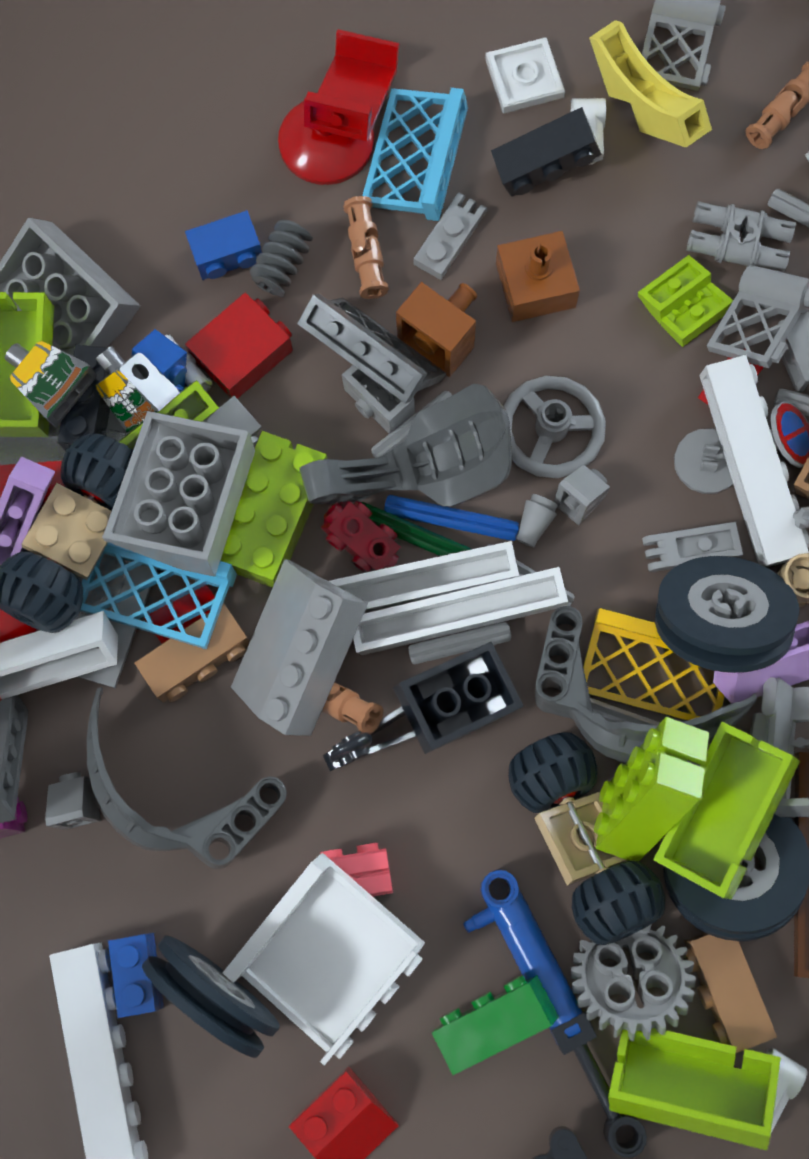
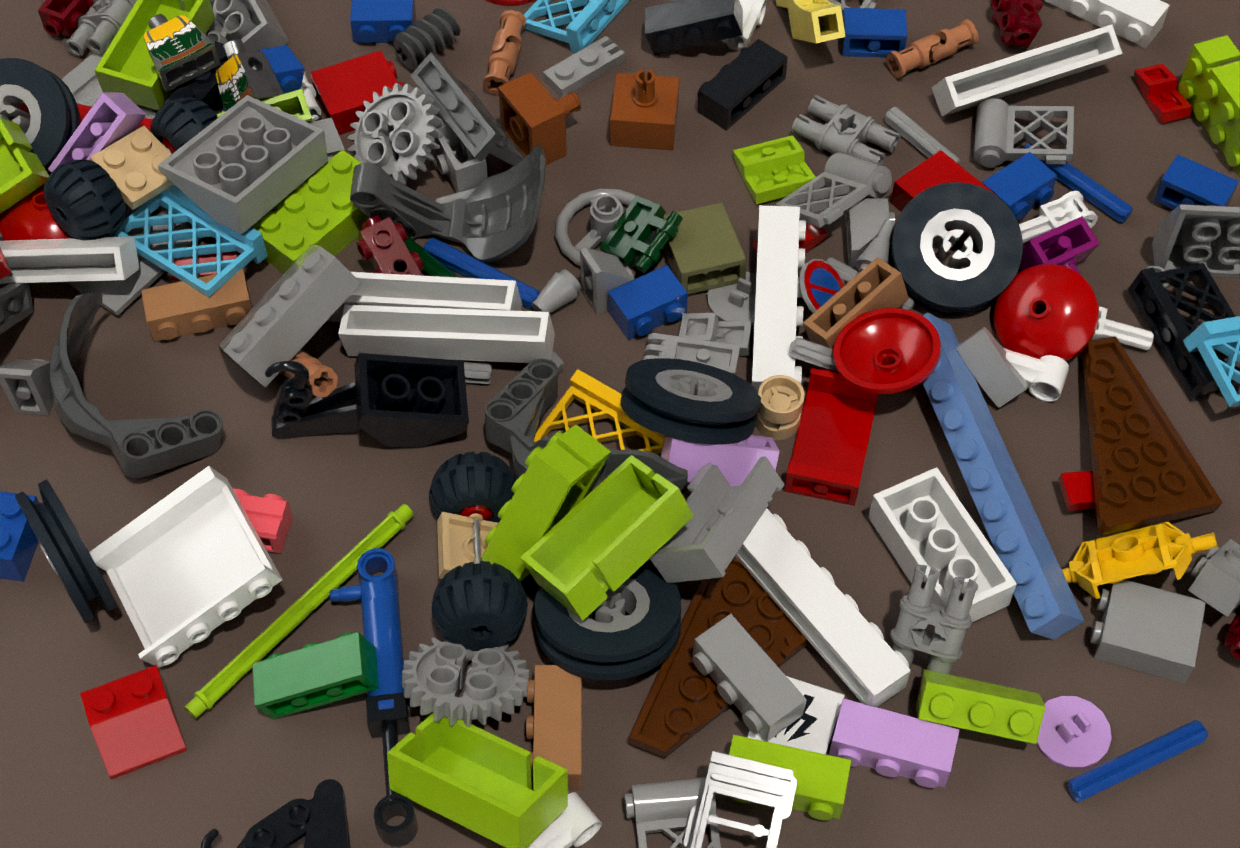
camera: 15 degrees right, 20 degrees down
(330, 380) = (397, 131): none -> light grey gear
(440, 951) = (296, 613): none -> lime piece
(589, 429) = (635, 227): none -> dark green plate
(617, 209) = (742, 84): none -> black brick
(628, 501) = (647, 302): none -> blue brick
(656, 421) = (705, 250): none -> olive brick
(703, 511) = (708, 327): none -> light grey slope
(730, 100) = (873, 32): none -> blue brick

